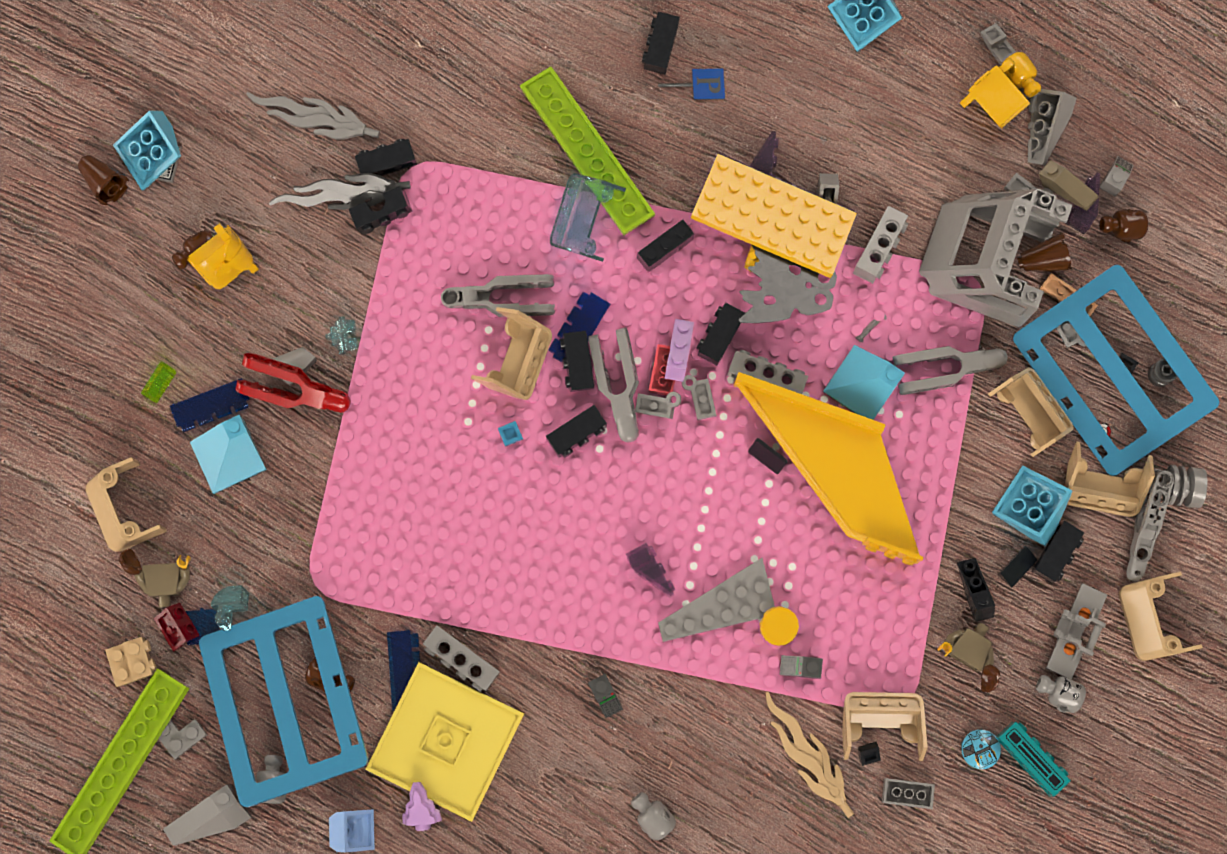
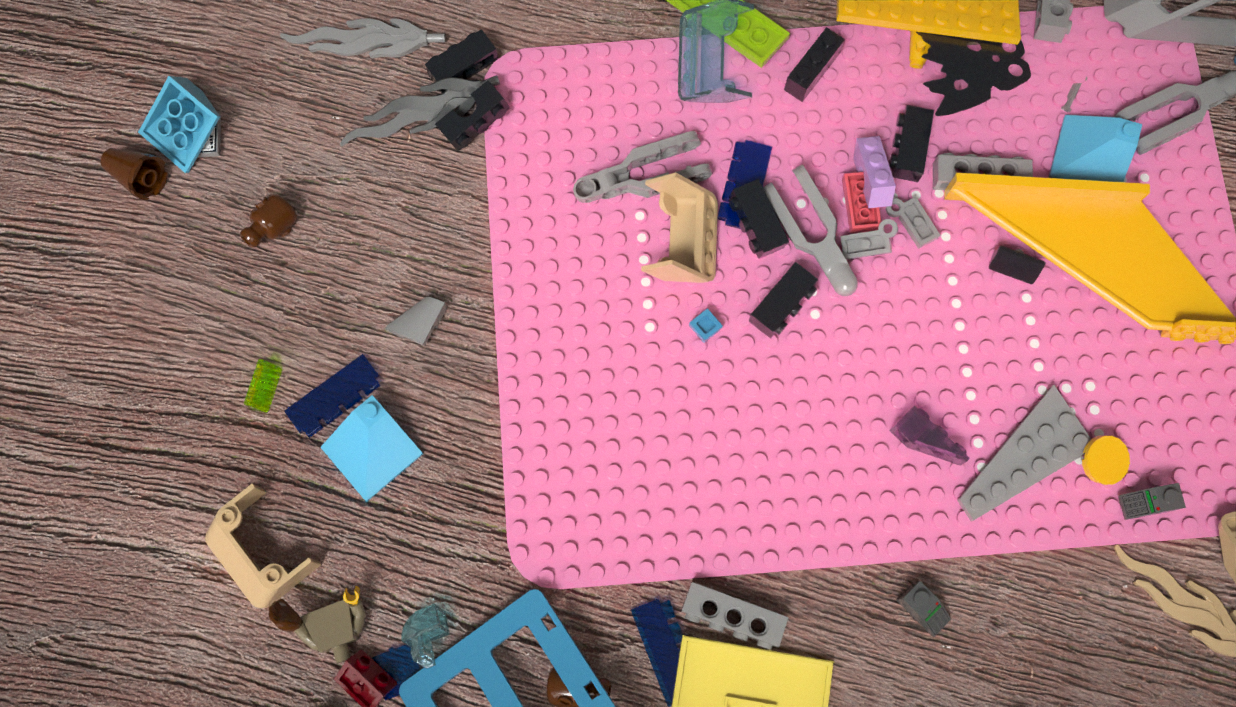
camera: 10 degrees left, 5 degrees down
(222, 258) = (300, 219): yellow piece -> none
(313, 393) = (455, 345): red piece -> none
(340, 333) = (466, 269): clear light blue hips -> none

